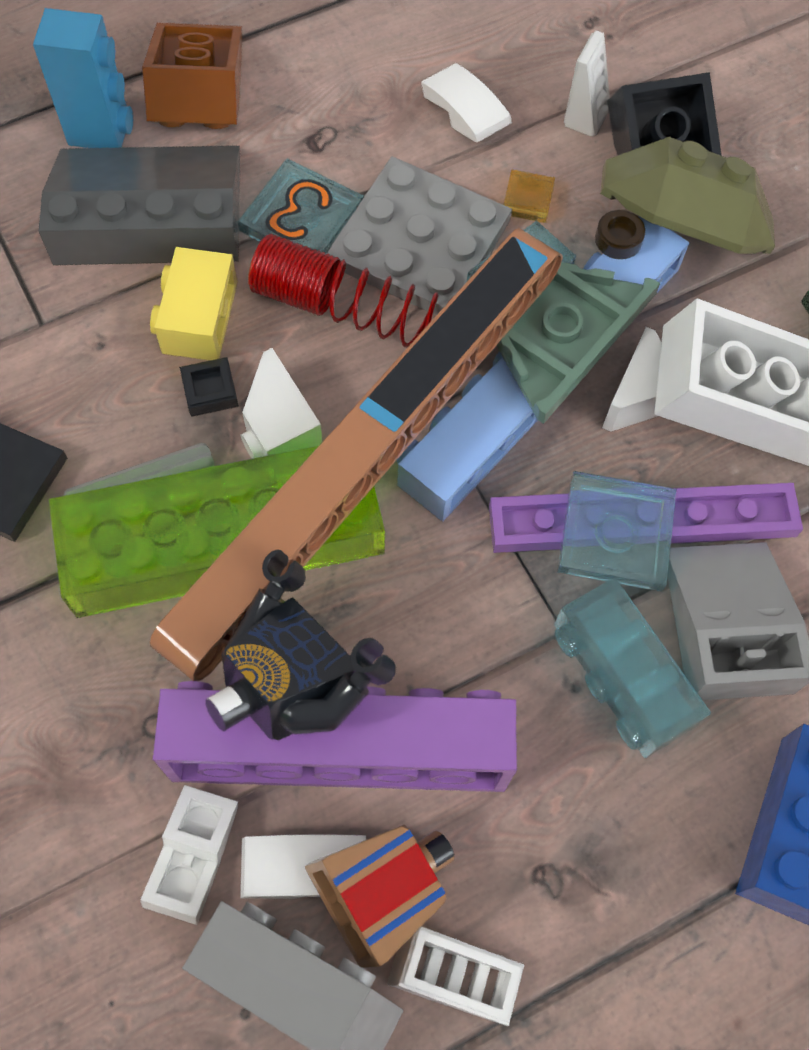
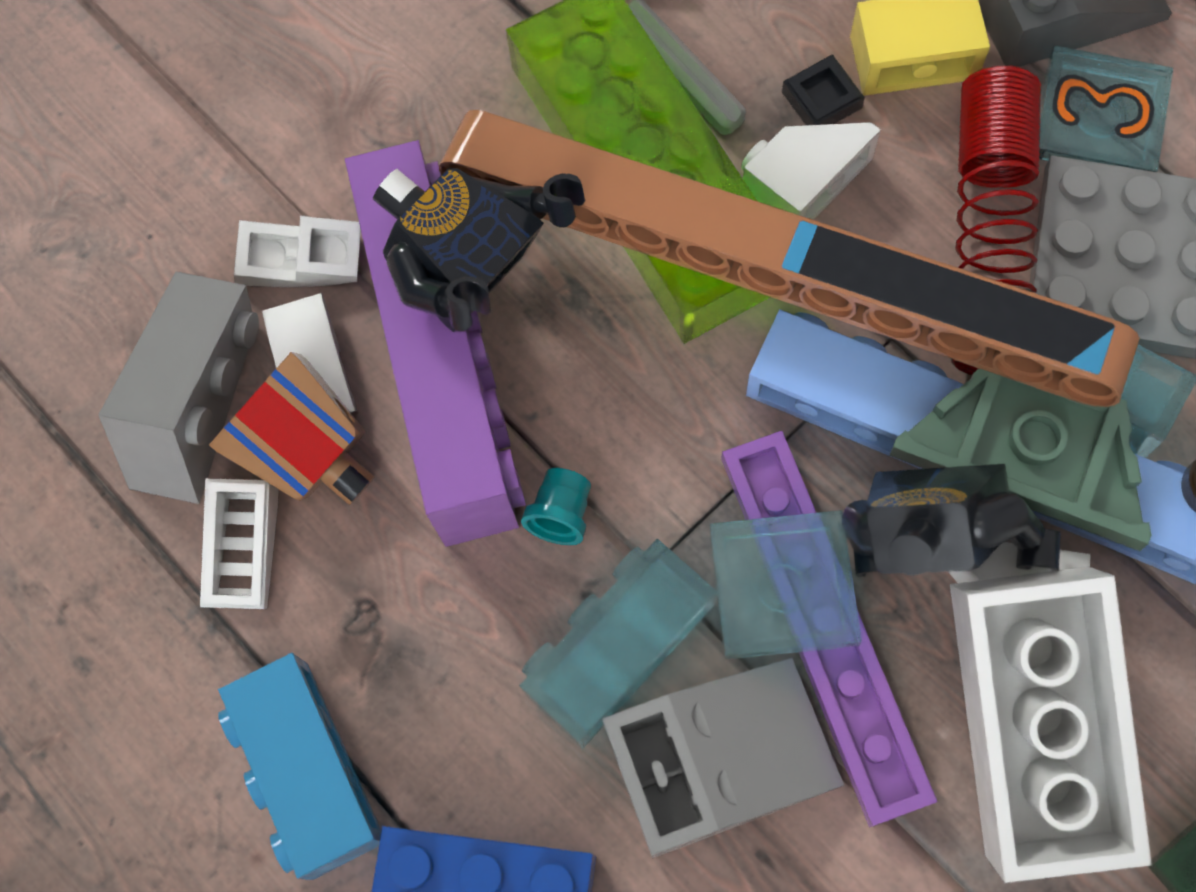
camera: 85 degrees right, 5 degrees up
(505, 678) = (559, 508): none -> teal piece
(615, 403) = (944, 522): none -> black torso
(679, 960) = (298, 768): none -> dark azure brick

